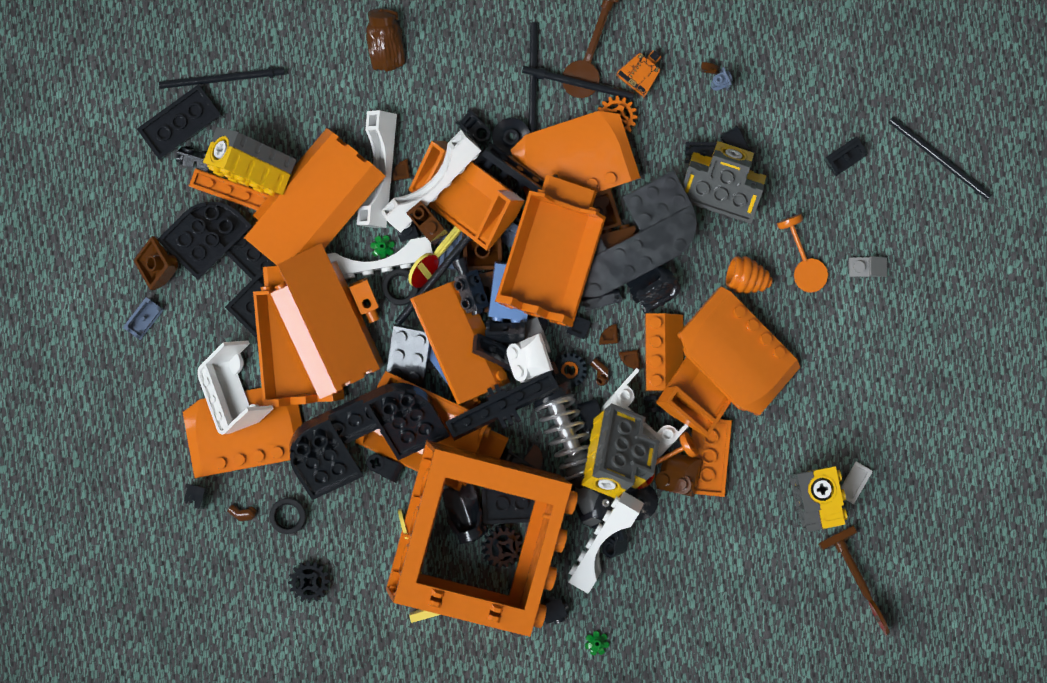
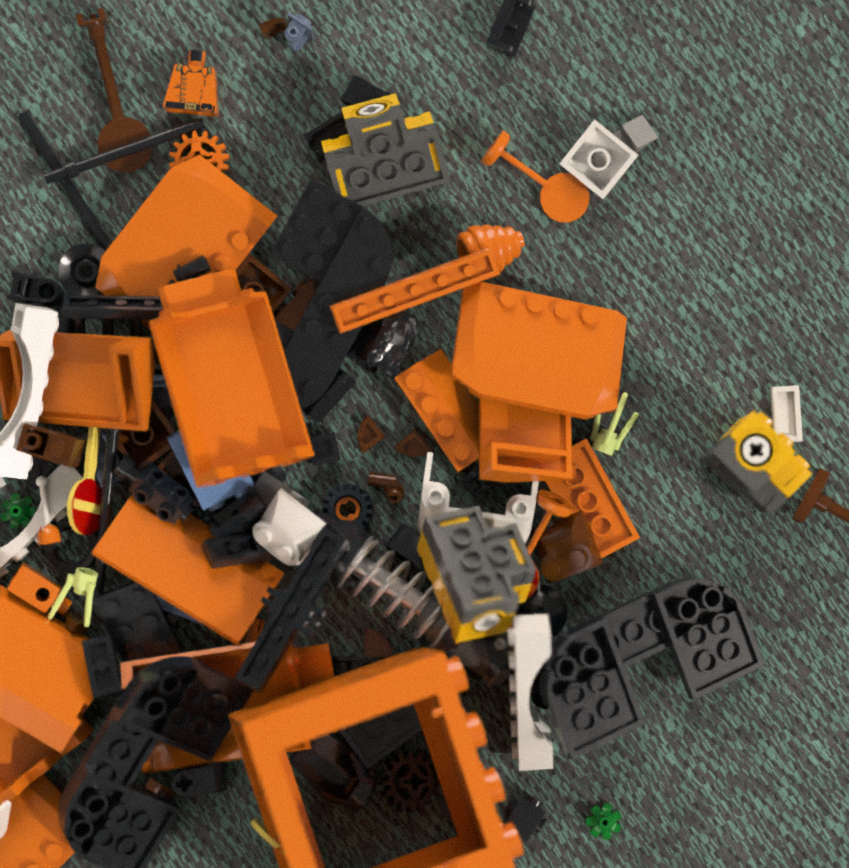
camera: 30 degrees left, 0 degrees up
(358, 457) = (159, 789): none -> reddish brown tile
(373, 331) = (74, 622): none -> reddish brown tile
(374, 367) = (102, 667): none -> black hinge
(392, 271) = (47, 533): none -> hinge
(394, 313) = (84, 584): none -> yellowish green plant
(572, 176) = (192, 269): none -> black pin
(645, 548) = (586, 671): none -> black plate
(690, 271) = (414, 290): none -> orange tile
(742, 429) = (606, 439): none -> yellowish green plant
(844, 266) = (599, 159): none -> white slope

